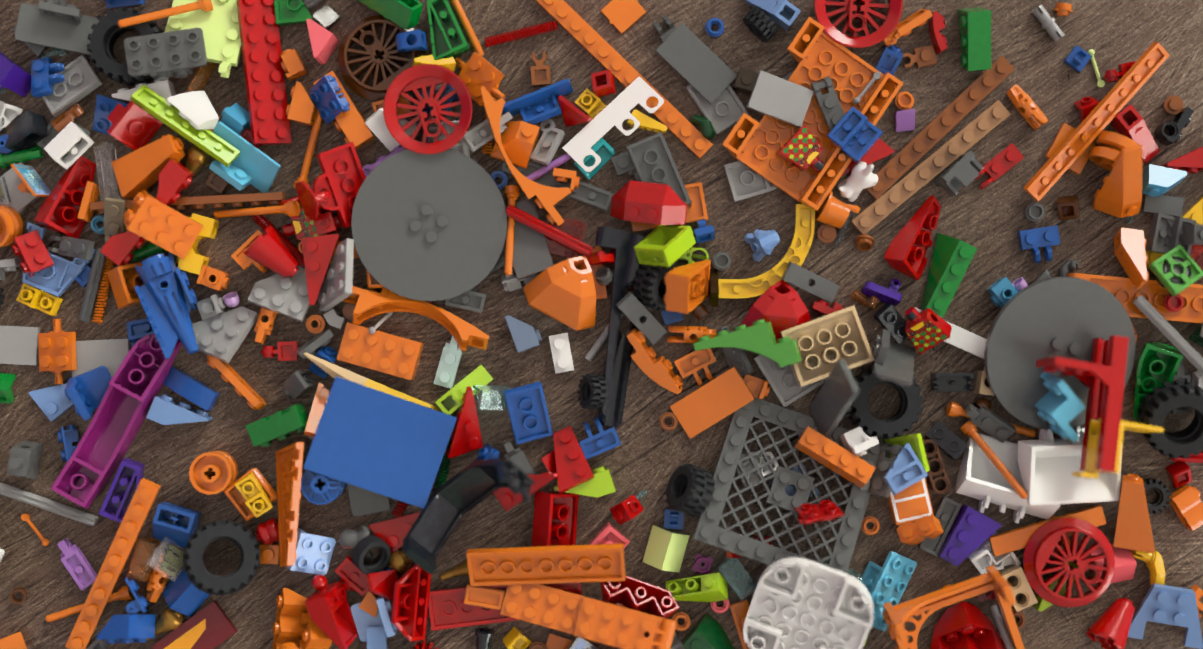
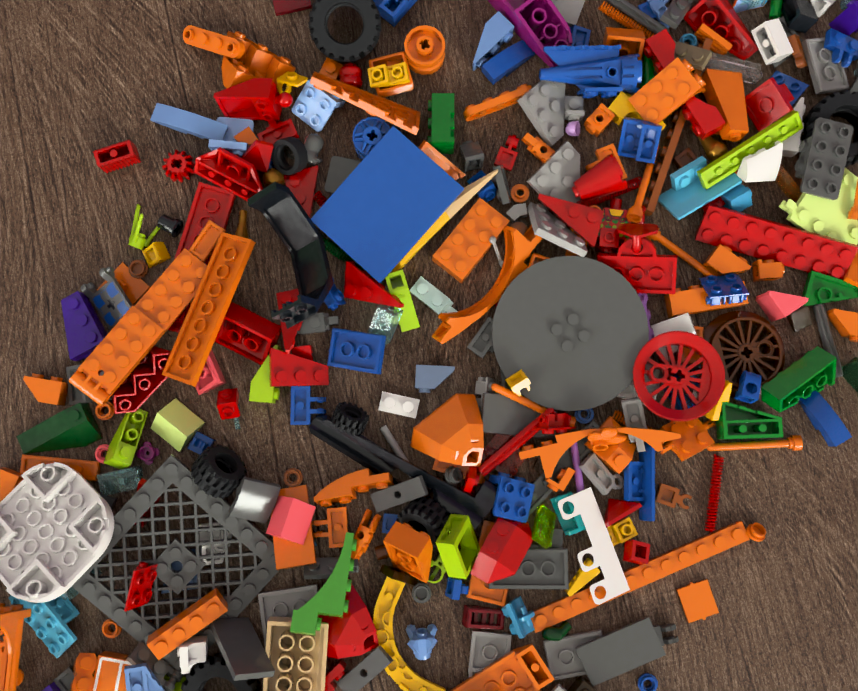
camera: 110 degrees right, 5 degrees down
(218, 232) = (639, 140): none -> blue slope
(297, 587) = (290, 79): none -> yellow bracket
(495, 252) = (518, 381): none -> yellow tile
(515, 155) = (606, 437): none -> orange plate
(515, 201) = (557, 421): none -> red hinge
(601, 214) = (512, 497): none -> blue bracket
(615, 175) = (544, 526): none -> clear neon green plate
(702, 445) = (254, 500): none -> dark grey slope
(704, 164) = (520, 617): none -> dark azure hips
(705, 406) = (291, 519): none -> coral slope
(721, 212) = (467, 615): none -> dark red slope
(757, 386) = (287, 577): orange bracket -> none

